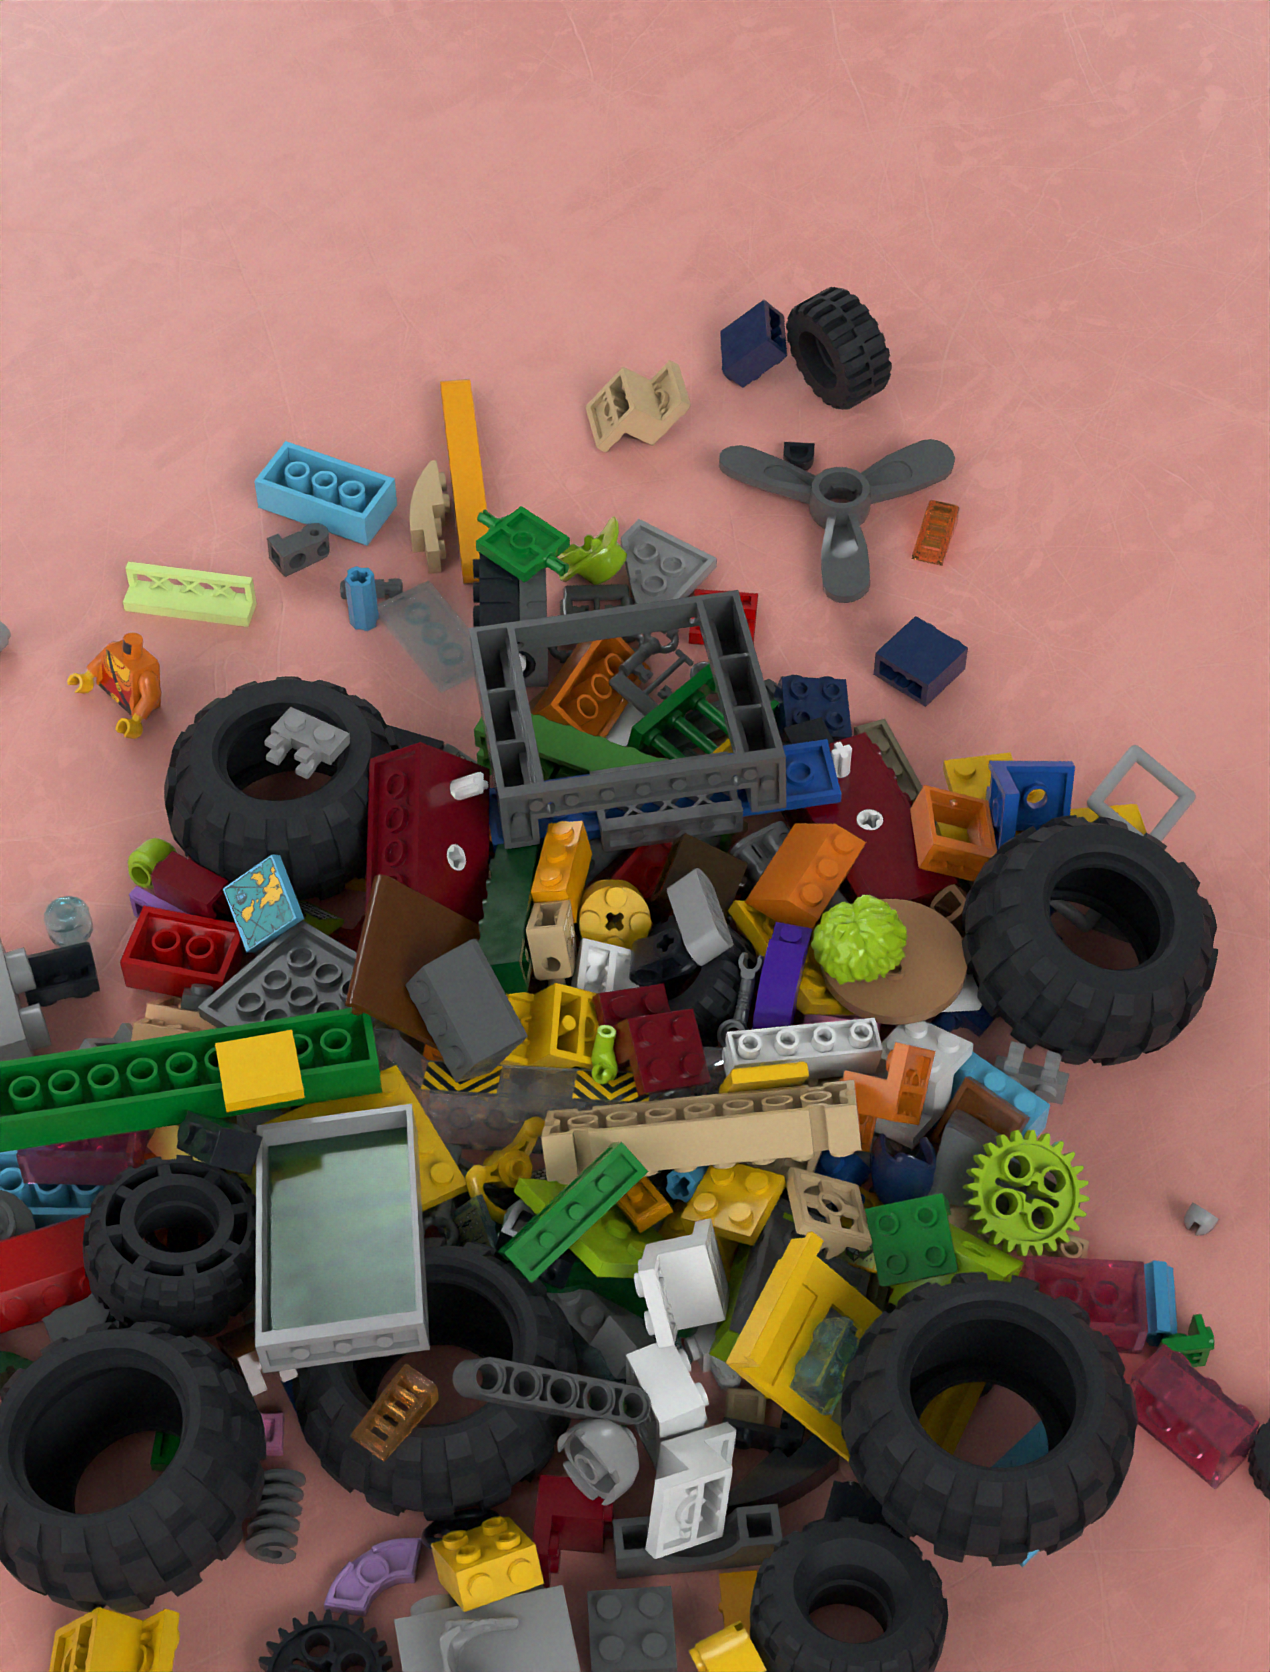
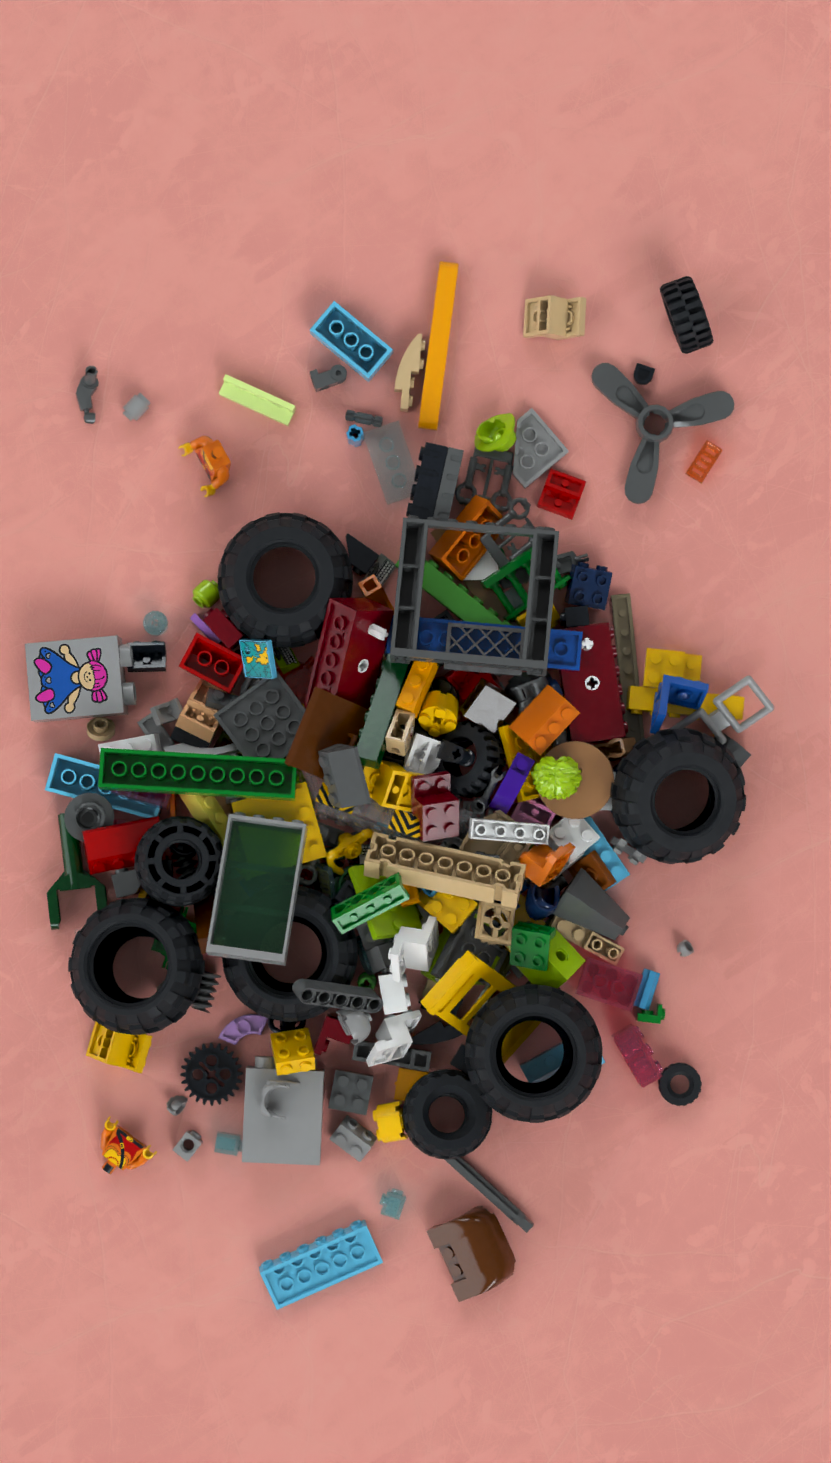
camera: 10 degrees right, 35 degrees up
(218, 1142) = (209, 819): black brick -> none
(259, 1070) = (235, 790): yellow tile -> none
(310, 736) = (300, 576): light grey plate -> none
(404, 1379) = (276, 980): clear orange slope -> none
(522, 543) = (449, 453): green plate -> none
(603, 1055) = (409, 811): lime arm -> none
(699, 917) = (478, 741): light grey beam -> none
(753, 344) = (639, 283): dark blue brick -> none
(765, 1077) = (482, 849): yellow tile -> none
(824, 1366) = (469, 1005): clear light blue bracket -> none
(920, 661) = (662, 561): dark blue brick -> none
(947, 854) = (650, 696): orange window -> none
(1016, 1225) = (596, 930): lime gear -> none

